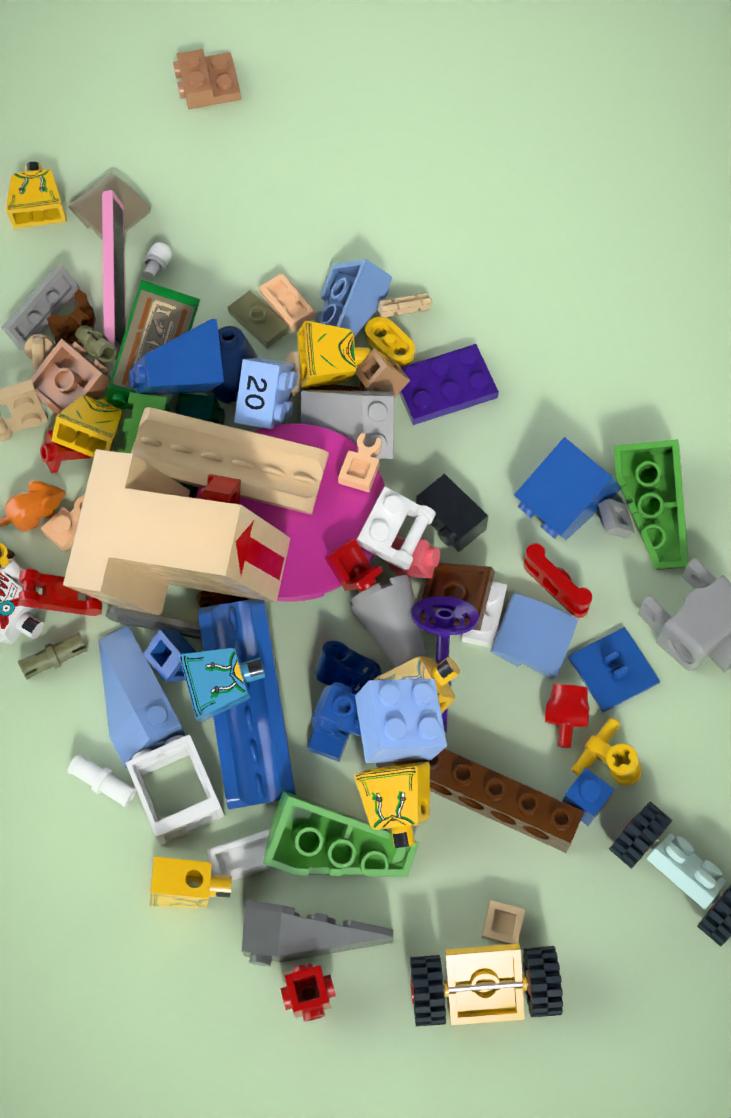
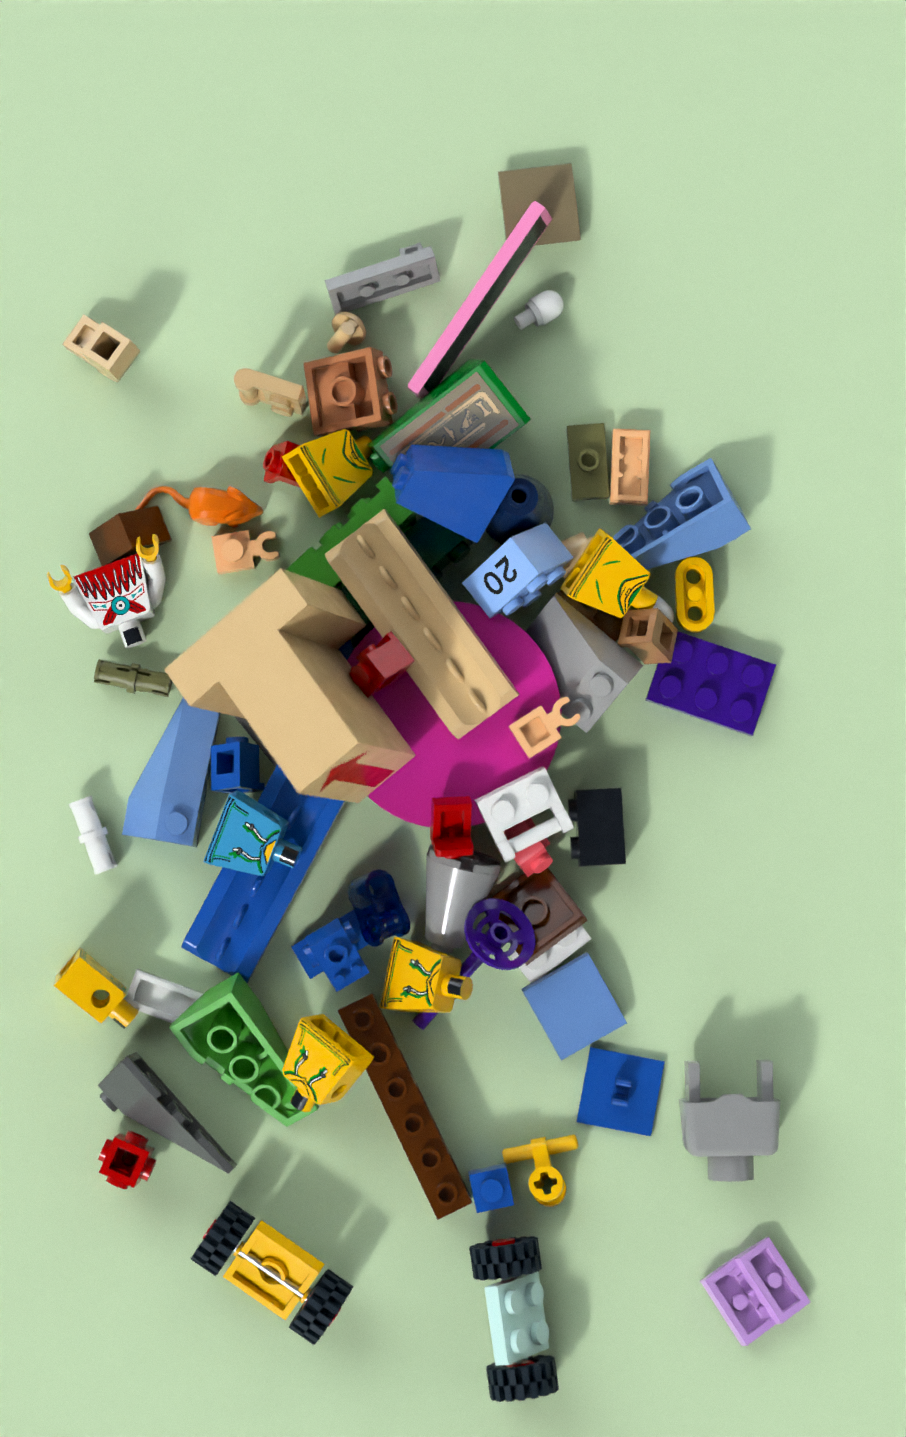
camera: 35 degrees right, 20 degrees up
(34, 198) = (472, 132): yellow torso -> none
(54, 595) = (176, 624): red plate -> none
(66, 326) = (404, 331): reddish brown piece -> none
(96, 344) = (399, 396): olive pin -> none
(189, 818) = (138, 932): white window -> none
(206, 79) = (766, 109): nougat plate -> none
(400, 720) = (372, 1009): light blue brick -> none
(404, 305) = (740, 566): tan axle -> none
(503, 923) = (332, 1232): tan plate -> none
(556, 582) = (637, 972): red plate -> none
(565, 490) = (725, 893): blue slope -> none
(567, 709) = (544, 1097): red piece -> none
(615, 518) = (746, 956): light grey plate -> none
(654, 492) = (806, 957): bright green wedge -> none

